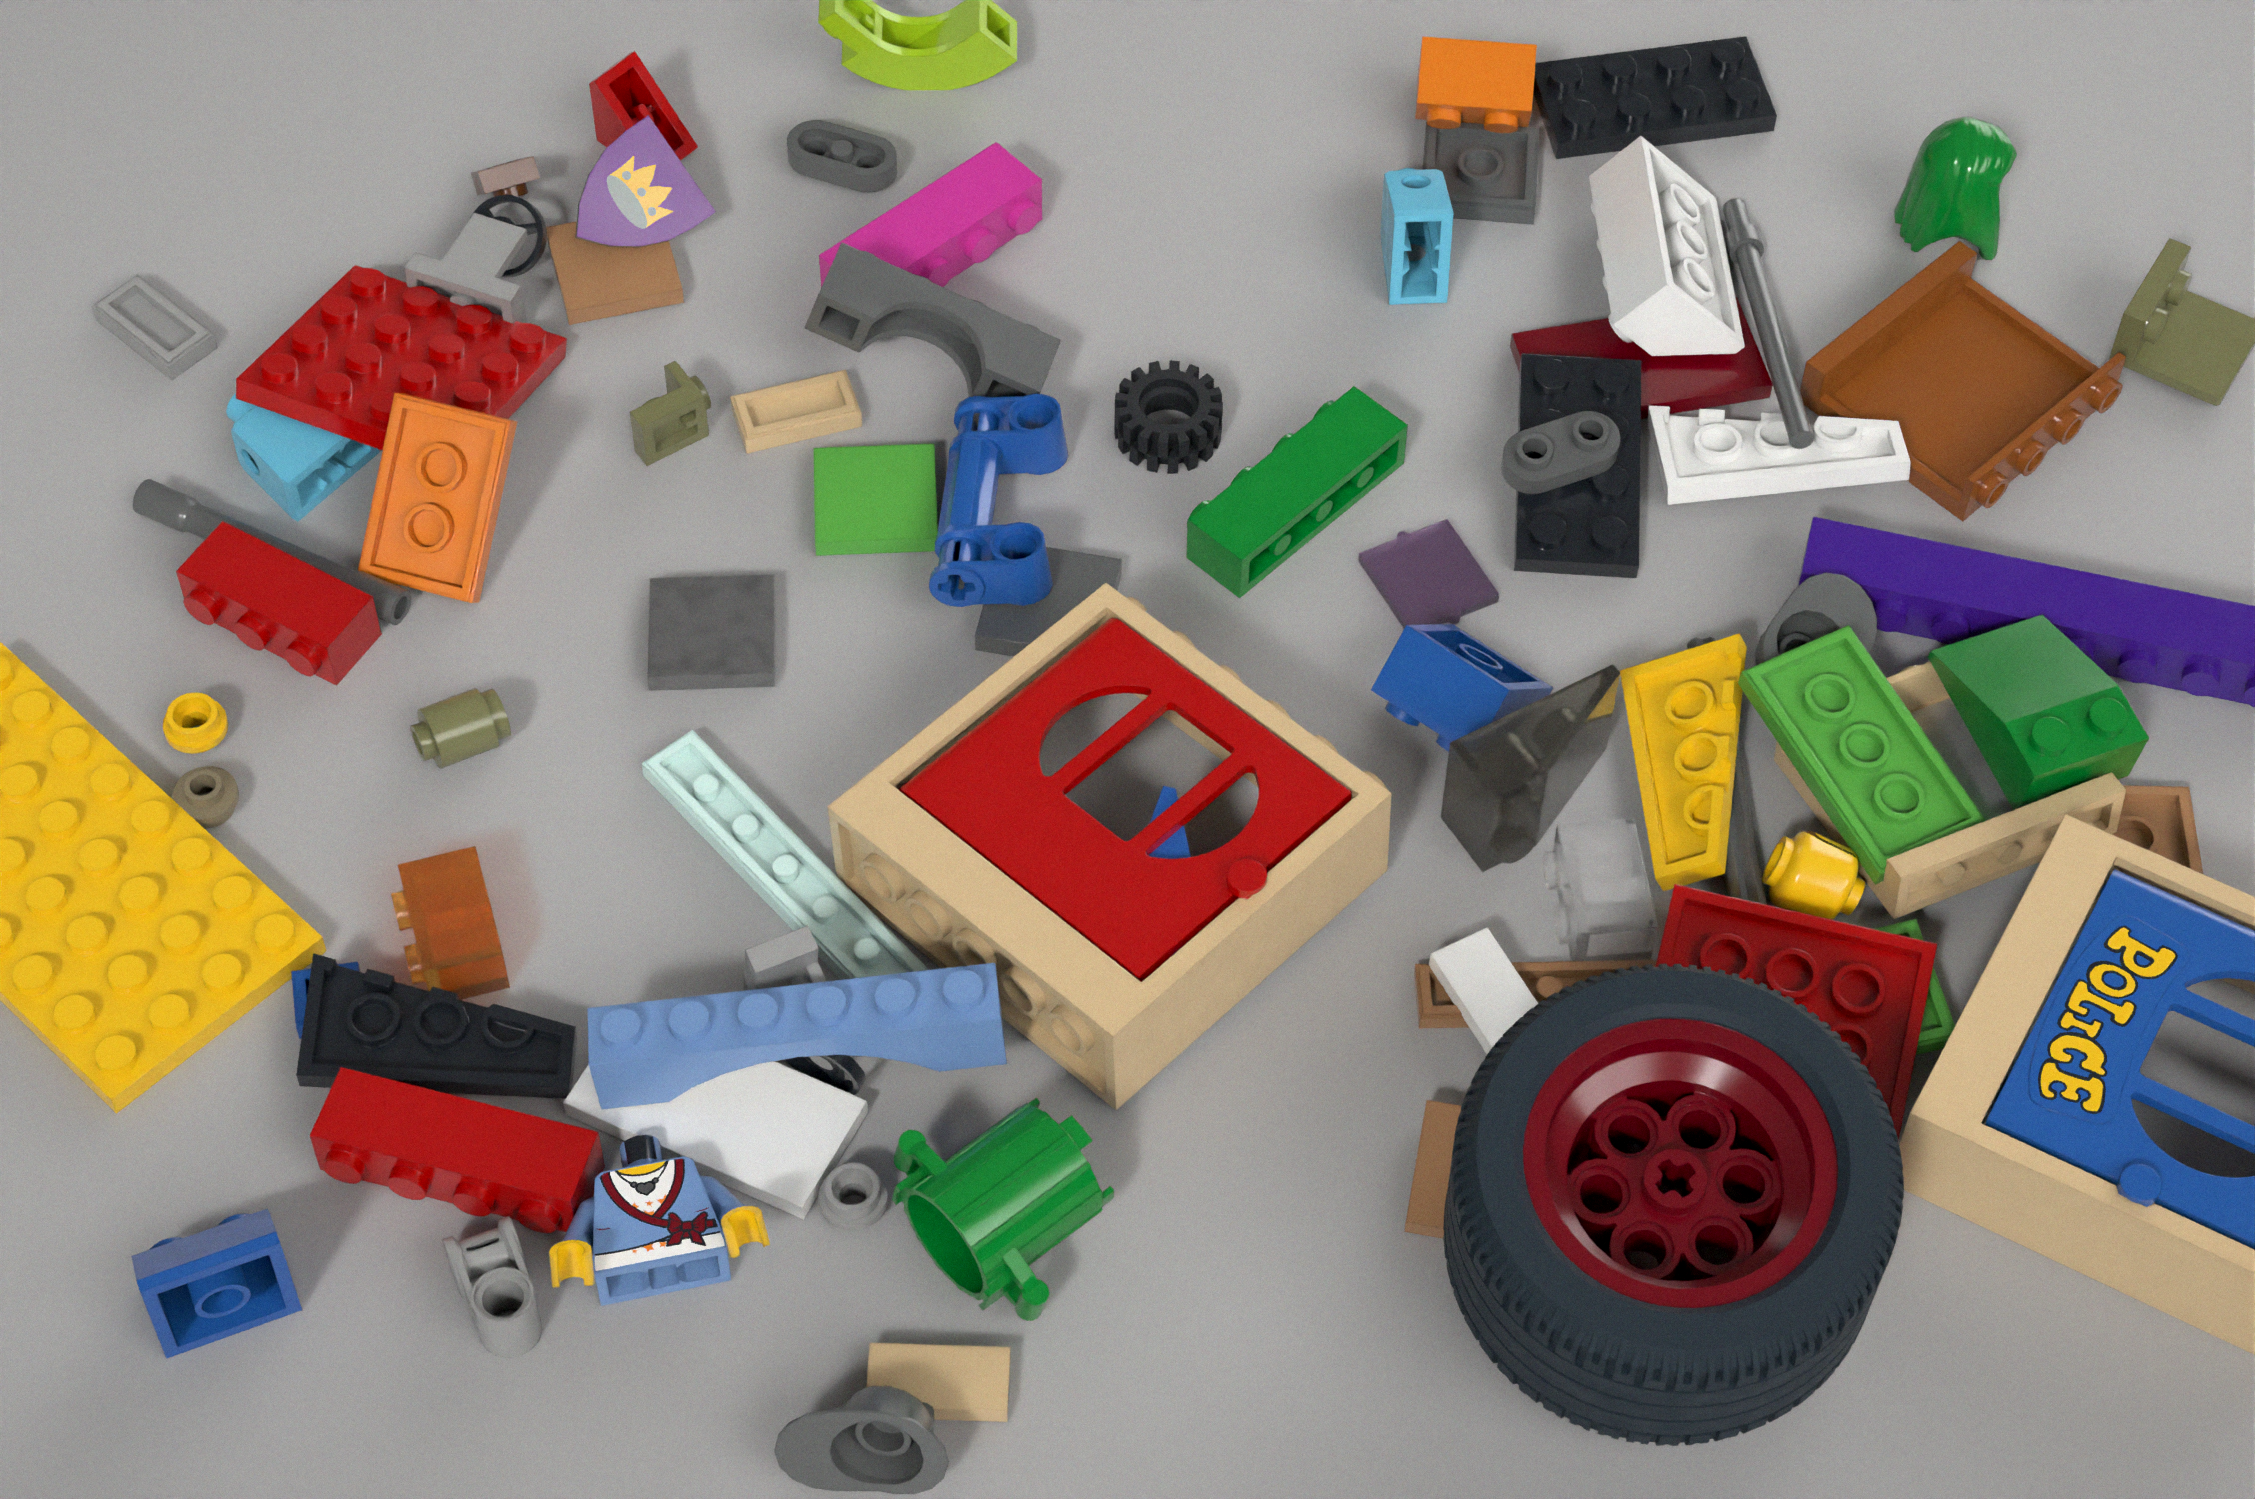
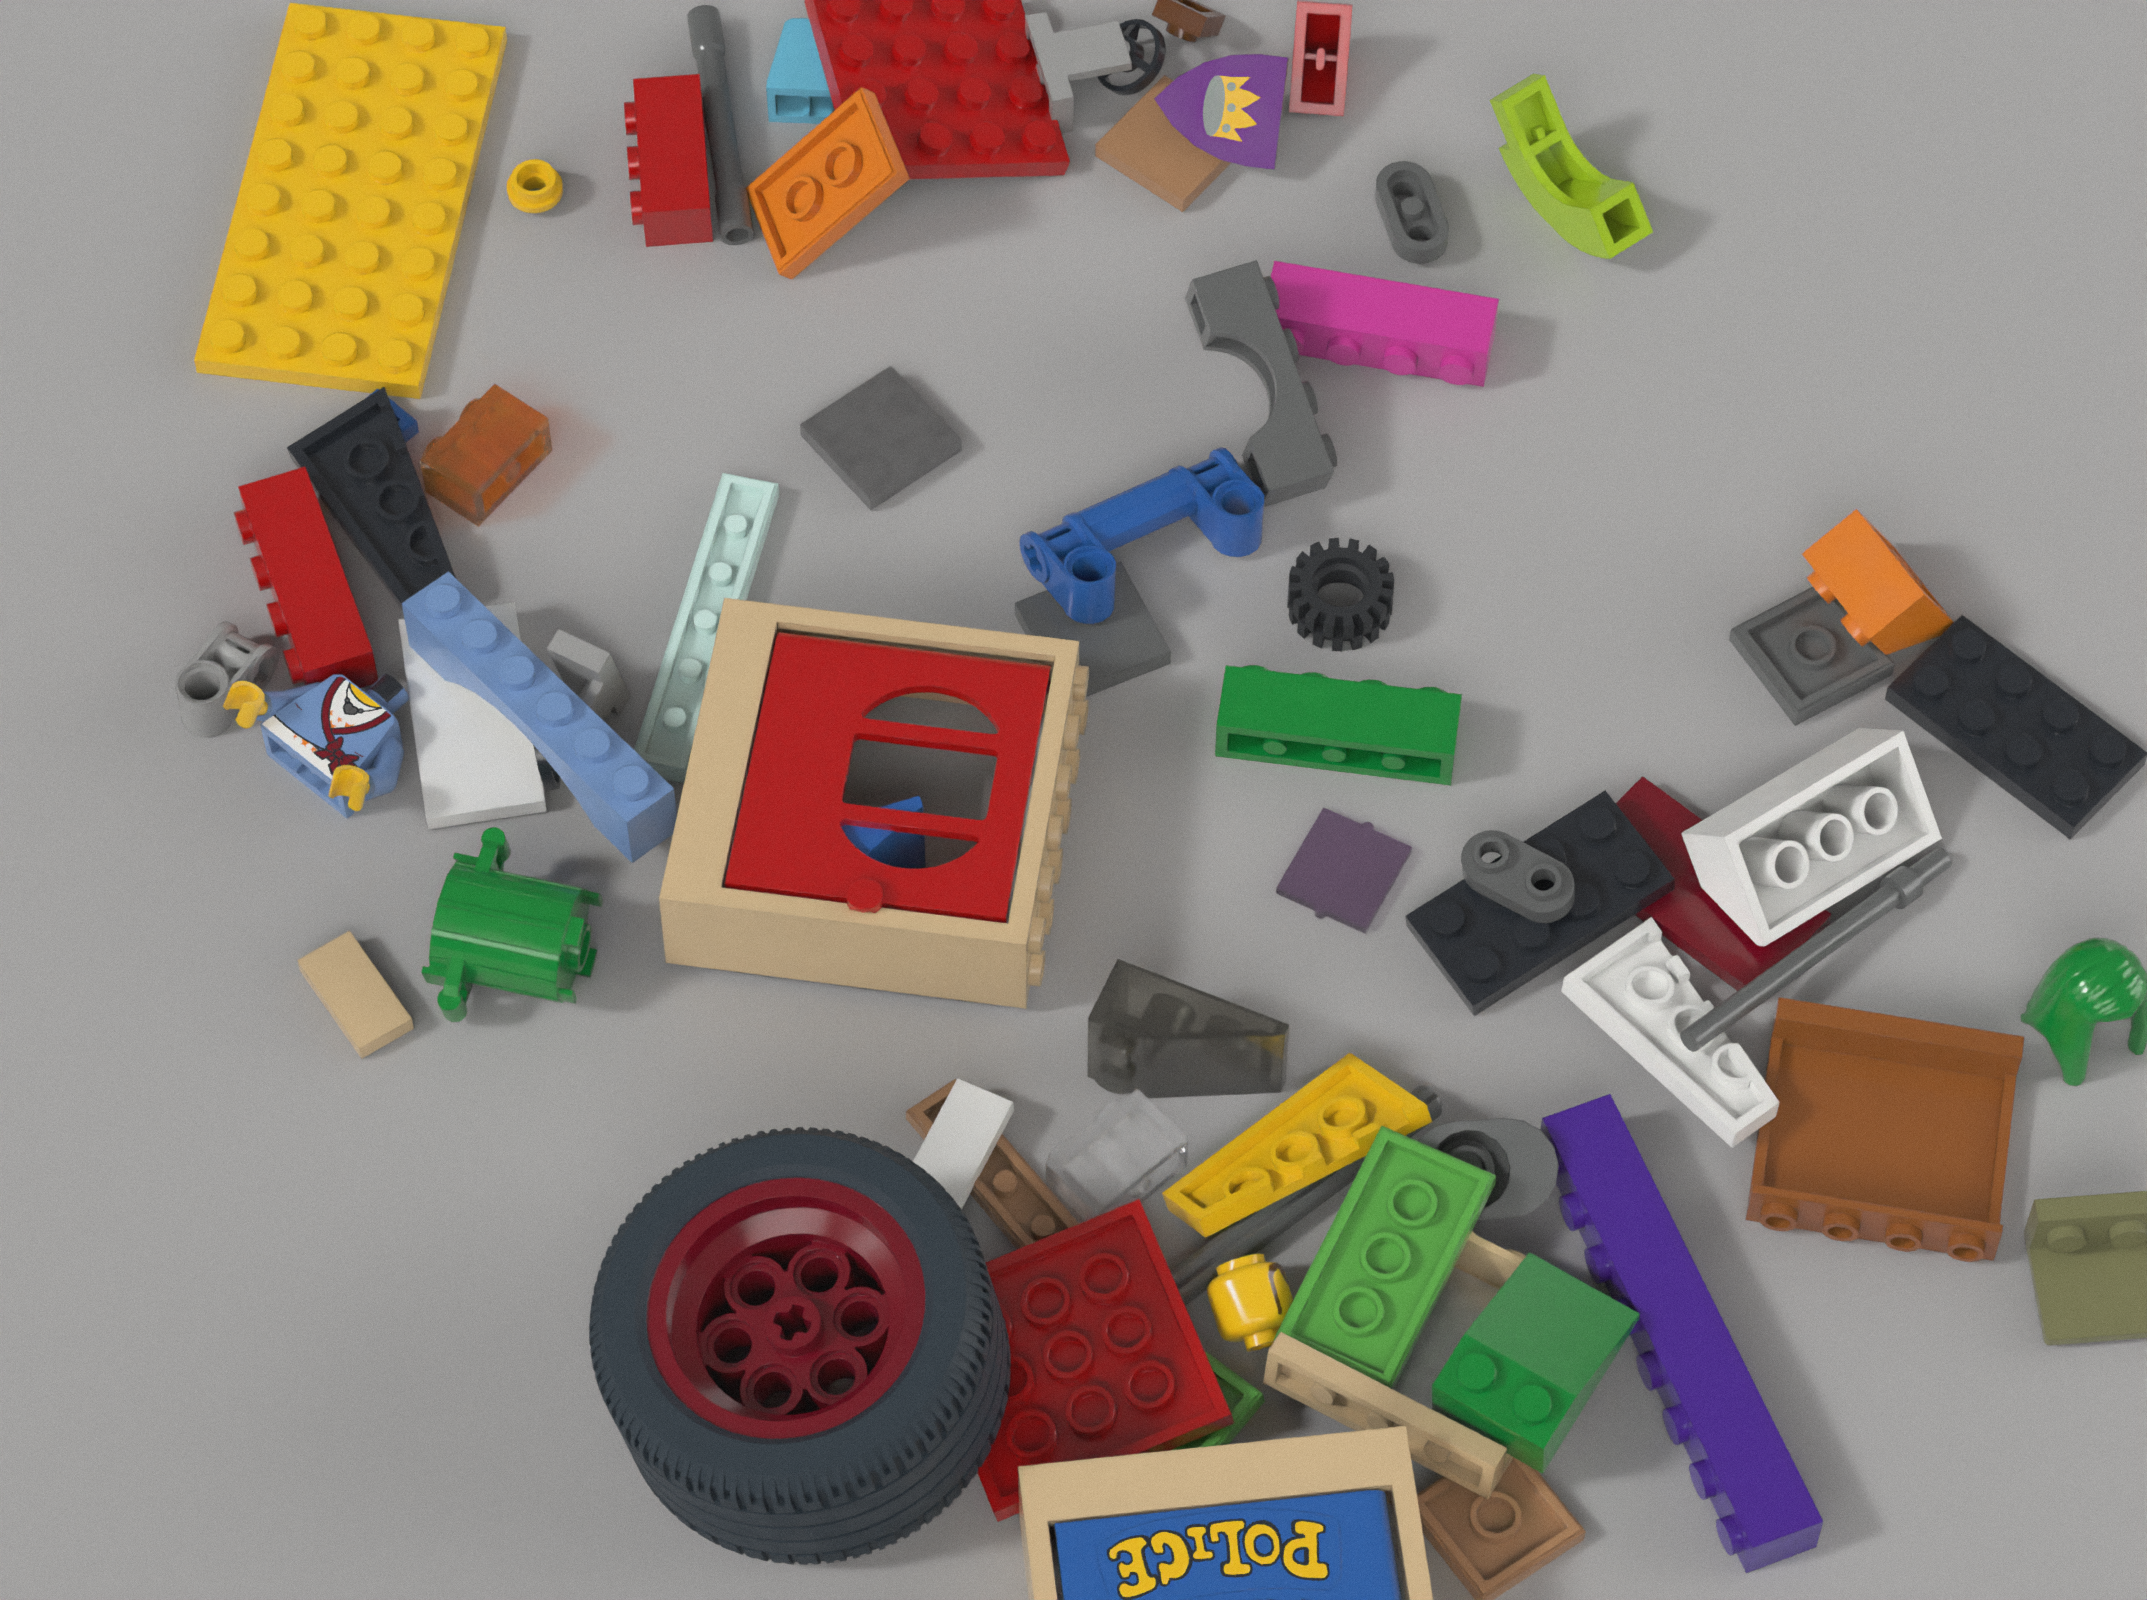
camera: 55 degrees right, 5 degrees up
(214, 807) = (484, 248): dark tan plate -> none
(215, 1282) = (95, 514): blue slope -> none
(460, 727) = (658, 342): olive brick -> none
(672, 420) = (1048, 280): olive bracket -> none
(796, 411) = (1136, 352): tan tile -> none
(853, 1180) = (453, 832): light grey plate -> none
(868, 1444) = (265, 976): dark grey piece -> none
(875, 499) = (1092, 452): bright green tile -> none
(1418, 213) = (1675, 641): medium azure torso -> none
(1452, 682) = (1241, 945): blue slope -> none

